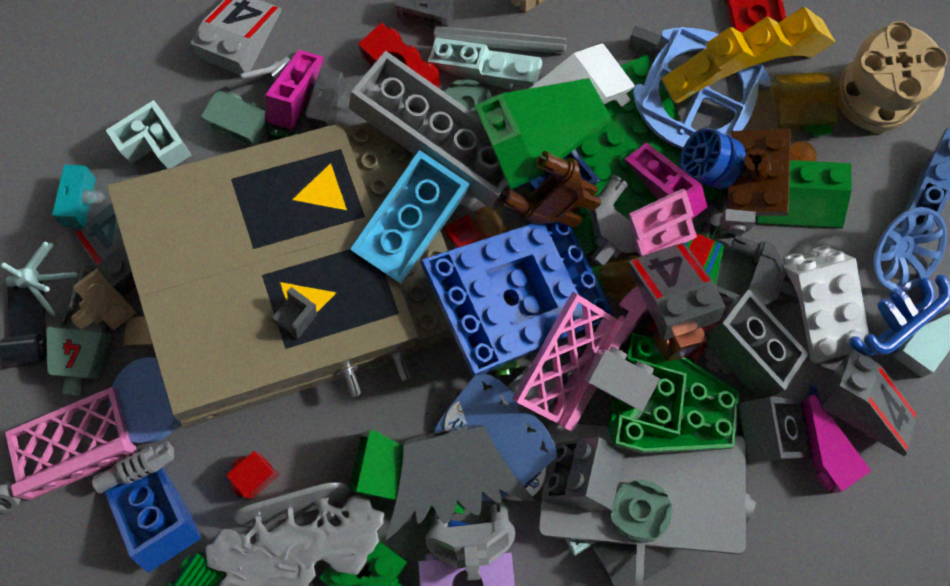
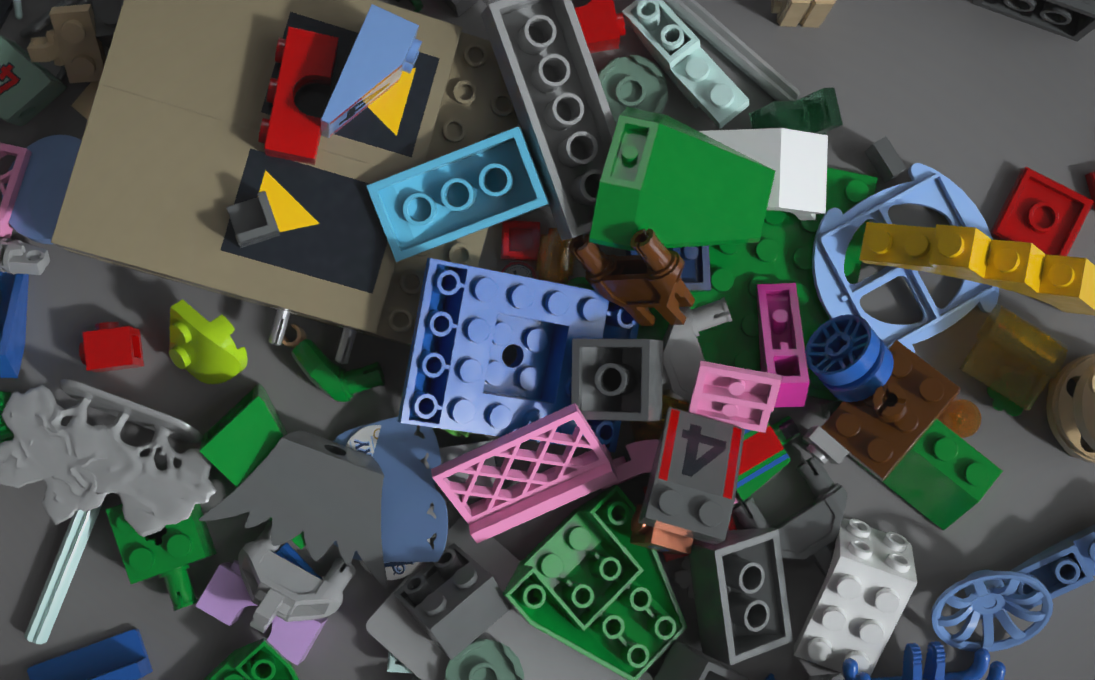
camera: 30 degrees right, 10 degrees up
(281, 245) = (304, 60): none -> red arch
(306, 162) = (375, 64): none -> medium blue slope
(311, 428) = (204, 346): none -> lime slope
(403, 395) = (327, 375): none -> green arm
(583, 37) = (812, 113): none -> clear green brick
(585, 263) = (618, 378): none -> dark grey slope
(621, 378) = (564, 530): light grey brick -> none

